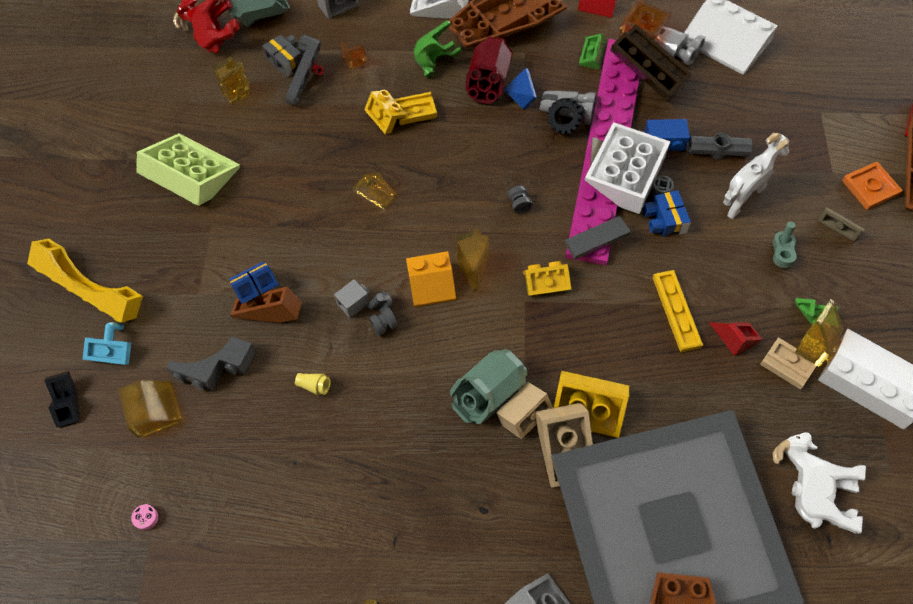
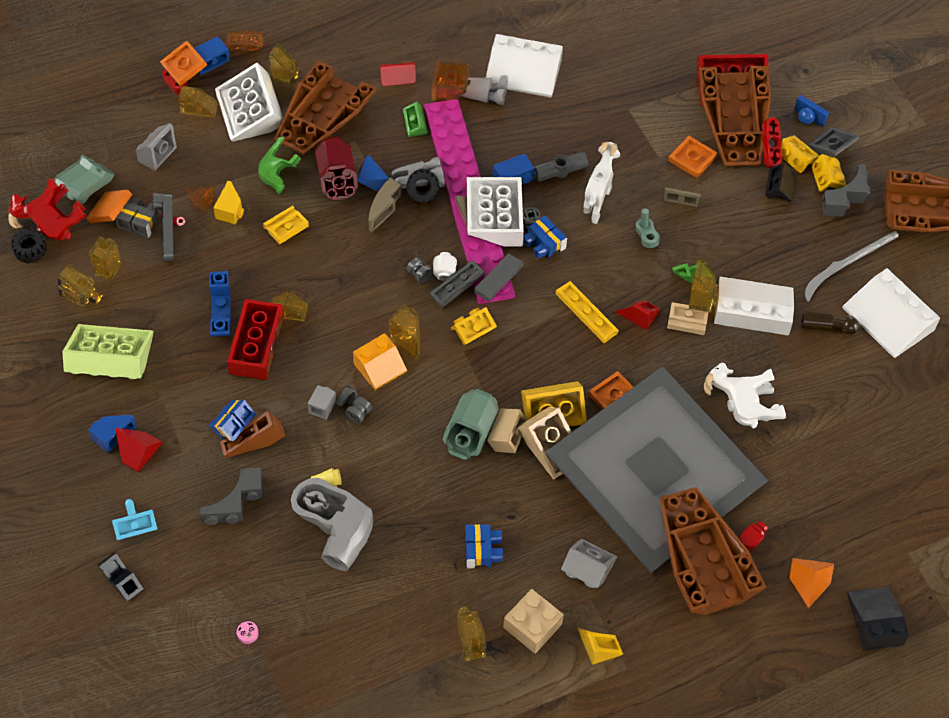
camera: 30 degrees left, 5 degrees down
(54, 262) = (36, 472): yellow arch -> none
(143, 246) = (104, 431): none -> blue slope
(149, 406) = (199, 552): clear yellow slope -> none
(156, 271) = (136, 447): none -> red slope
(177, 39) = (25, 237): none -> black tyre
(196, 102) = (77, 287): none -> clear yellow torso
(265, 35) = (109, 206): none -> orange tile
(297, 428) = (337, 515): none -> light grey piece
(313, 164) = (220, 304): none -> blue slope
(322, 209) = (255, 339): none -> red brick
(372, 70) = (228, 206): none -> yellow slope
(384, 110) = (260, 236): yellow bracket -> none
(428, 531) = (479, 545): none -> blue hips
(518, 121) = (384, 203): none -> dark tan slope
(548, 205) = (444, 266): none -> white head
(552, 228) = (457, 283): none -> dark grey tile
(650, 62) = (473, 114): dark brown brick -> none
(662, 411) = (609, 390): none -> orange tile

